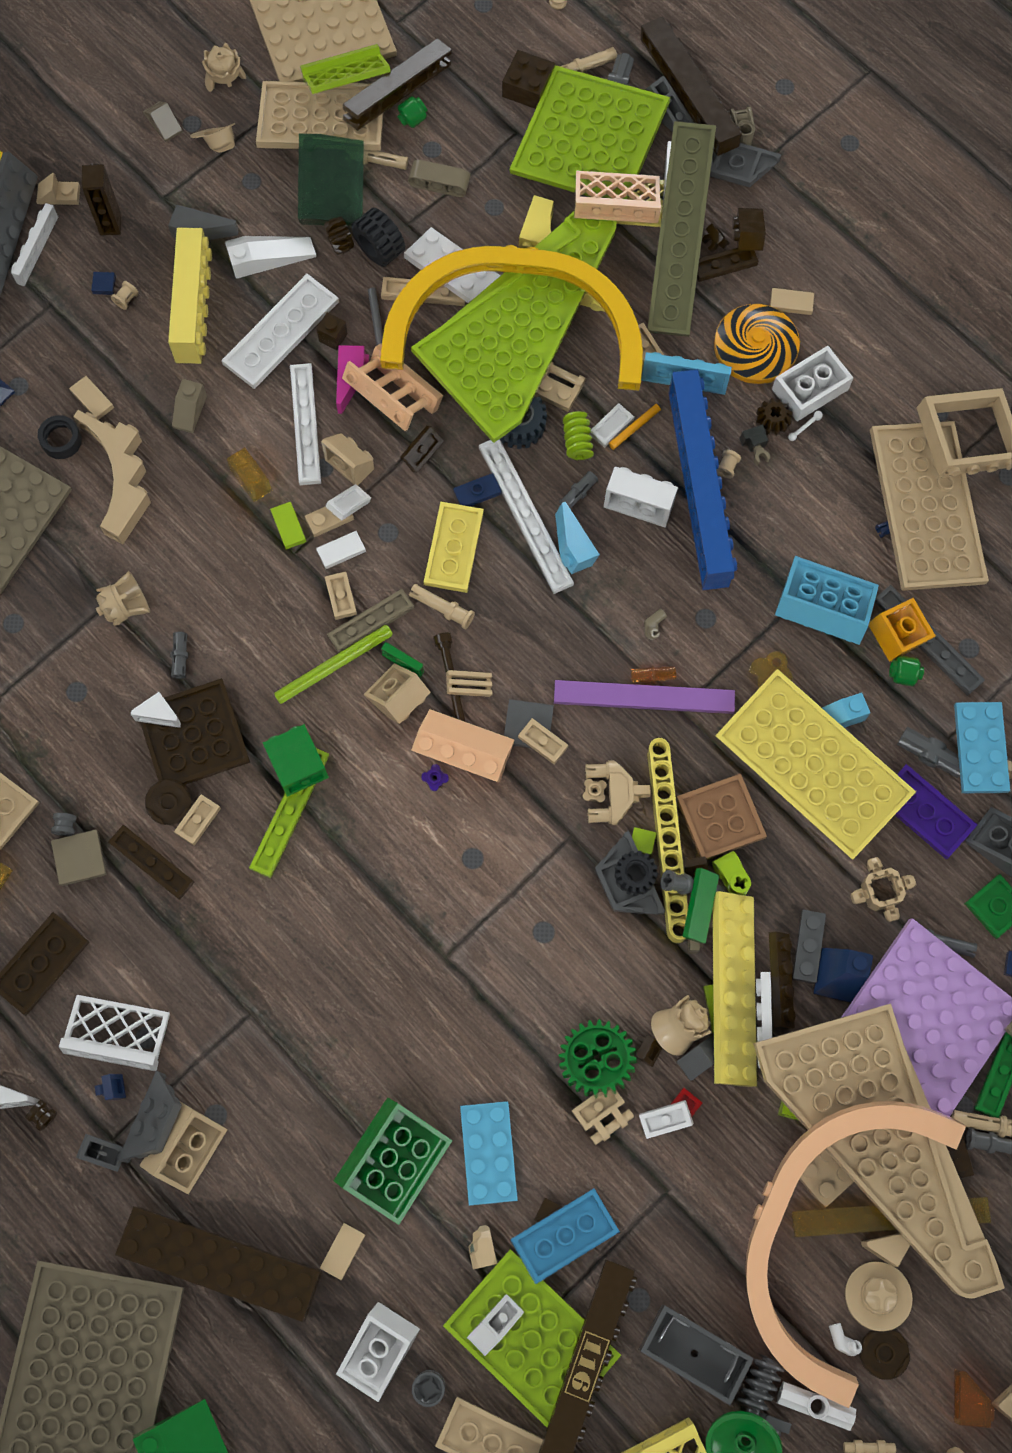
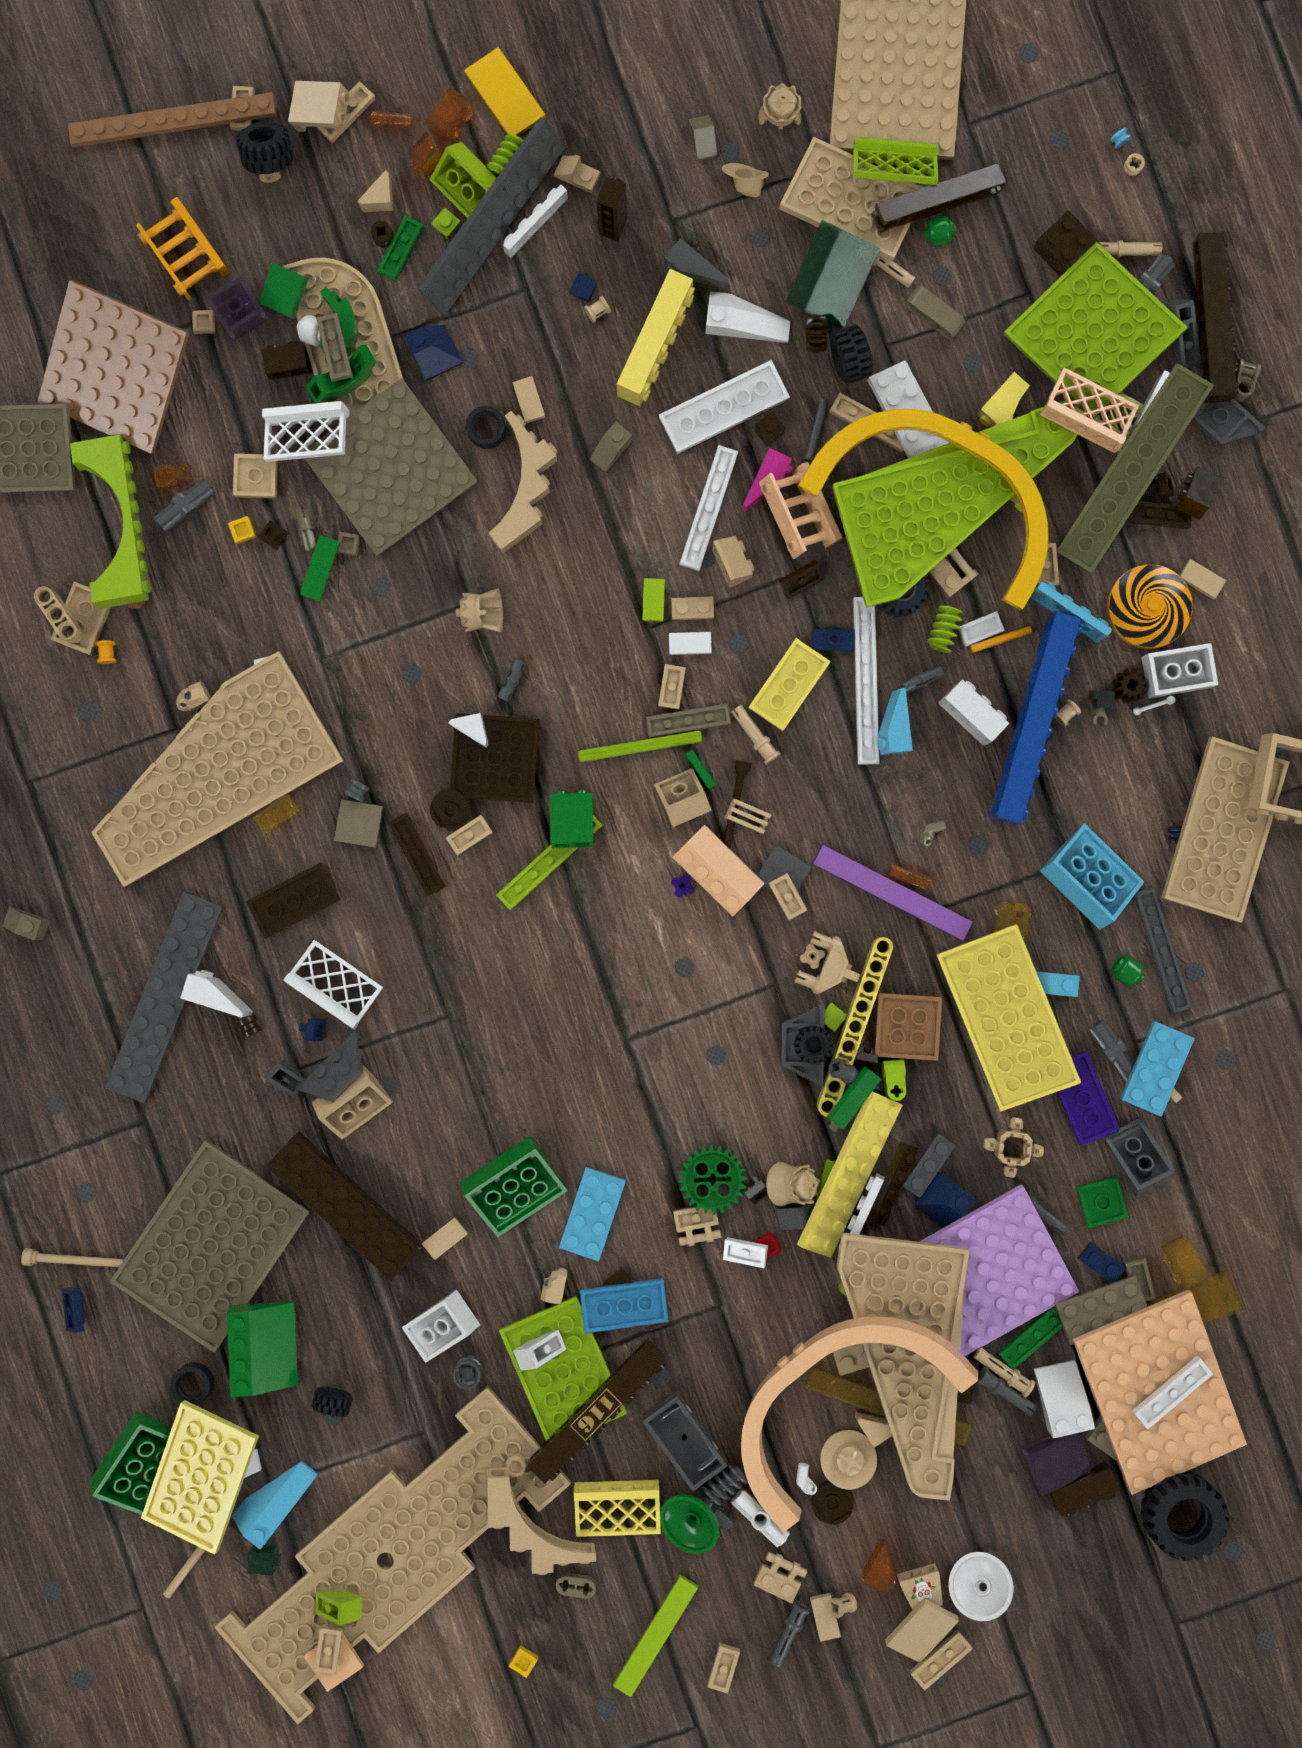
camera: 25 degrees right, 15 degrees up
(249, 474) = (638, 538): clear yellow brick -> none
(348, 502) = (714, 603): white tile -> none
(901, 629) = (1142, 933): light orange slope -> none

